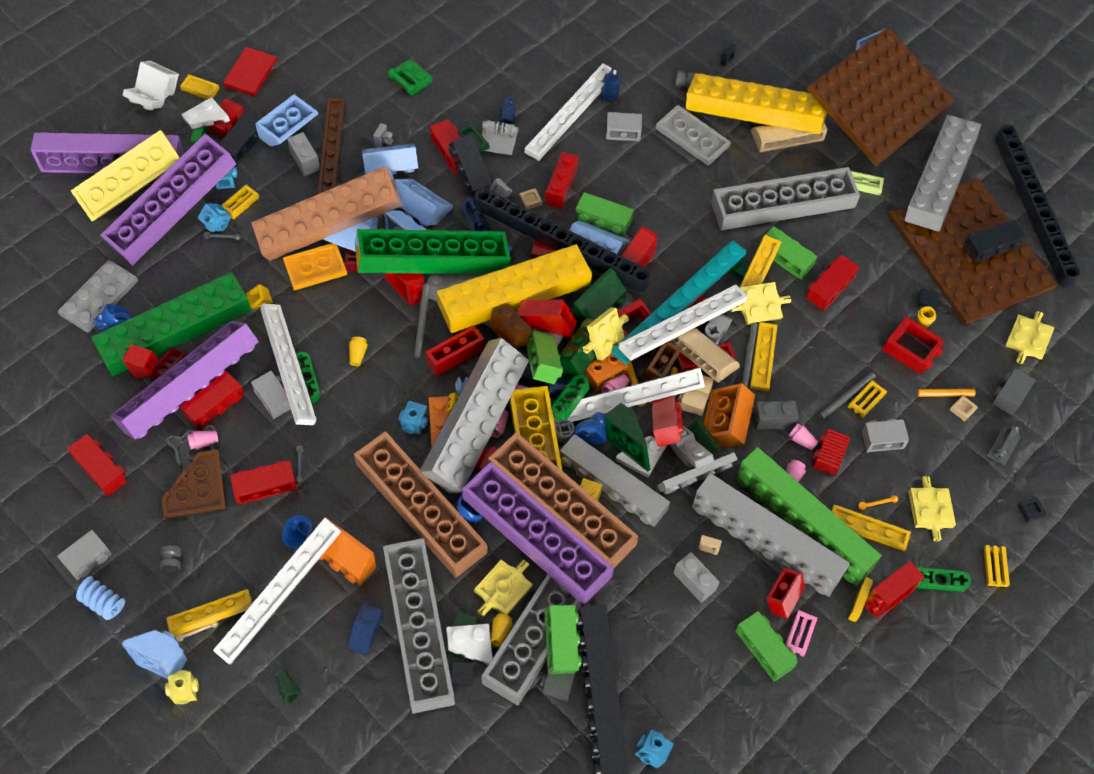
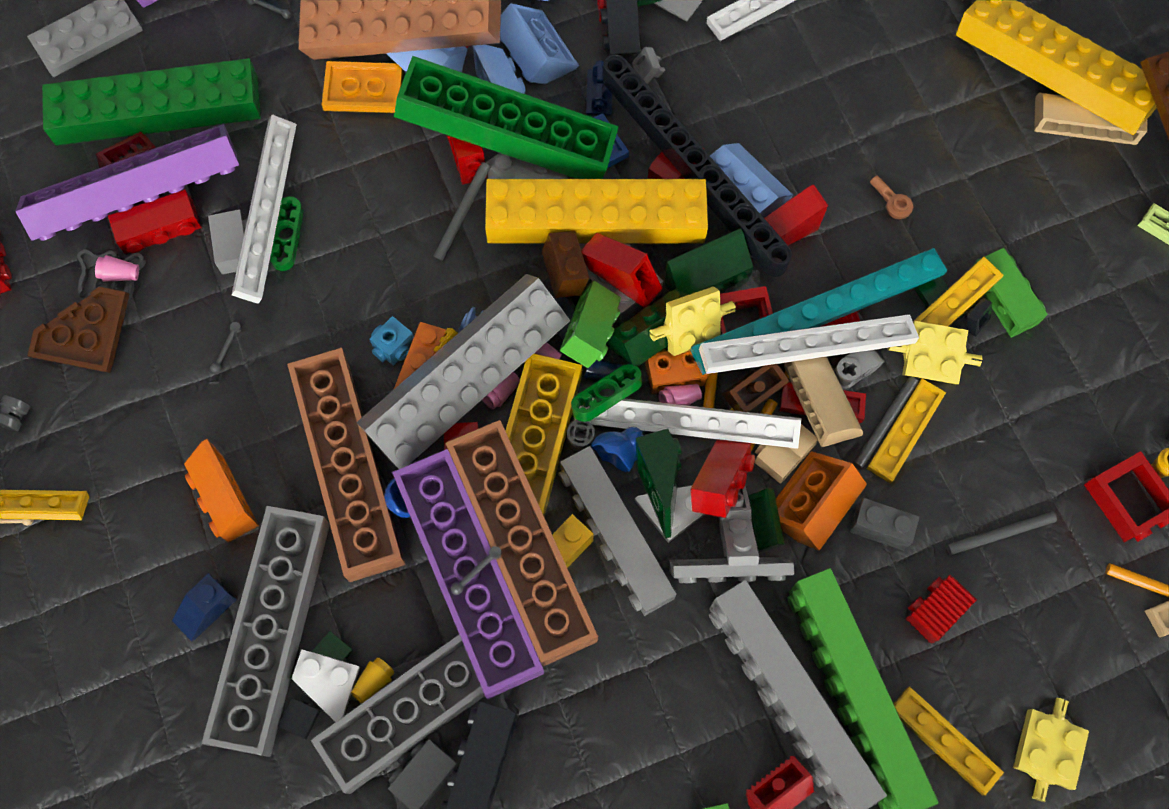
camera: 25 degrees right, 10 degrees up
(111, 316) = (83, 65): blue hair -> none
(139, 361) = (82, 137): red slope -> none
(258, 296) = (277, 103): yellow slope -> none
(263, 482) = (167, 355): red brick -> none
(277, 591) = (111, 512): white plate -> none
(288, 689) = (73, 644): clear green cone -> none
(297, 531) = (173, 443): blue hair -> none
(357, 349) = (364, 221): yellow cone -> none
(455, 350) = (485, 268): red brick -> none
(503, 588) = (402, 623): light yellow plate -> none
(530, 199) = (685, 91): tan tile -> none
(551, 511) = (494, 553): none -> dark grey hinge
(561, 180) = (737, 79): red brick -> none
(562, 639) = (435, 738): bright green brick -> none
(604, 214) = (774, 146): bright green brick -> none
(623, 126) = (857, 30): light grey brick -> none
(693, 135) = (949, 75): light grey plate -> none
(696, 577) = (666, 715): light grey brick -> none
(697, 224) = (898, 205): none -> nougat plate
(709, 544) = (706, 675): tan tile -> none
(776, 272) = (978, 316): none -> black plate
(784, 198) = (1041, 212): light grey brick -> none
(796, 469) = (873, 618): bright pink cone -> none
(803, 437) = (909, 570): bright pink cone -> none
(832, 282) = (1054, 358): red brick -> none
(858, 409) = (1008, 559): yellow tile -> none
(862, 505) = (951, 704): light orange hinge -> none
(885, 435) = (1029, 614): light grey brick -> none

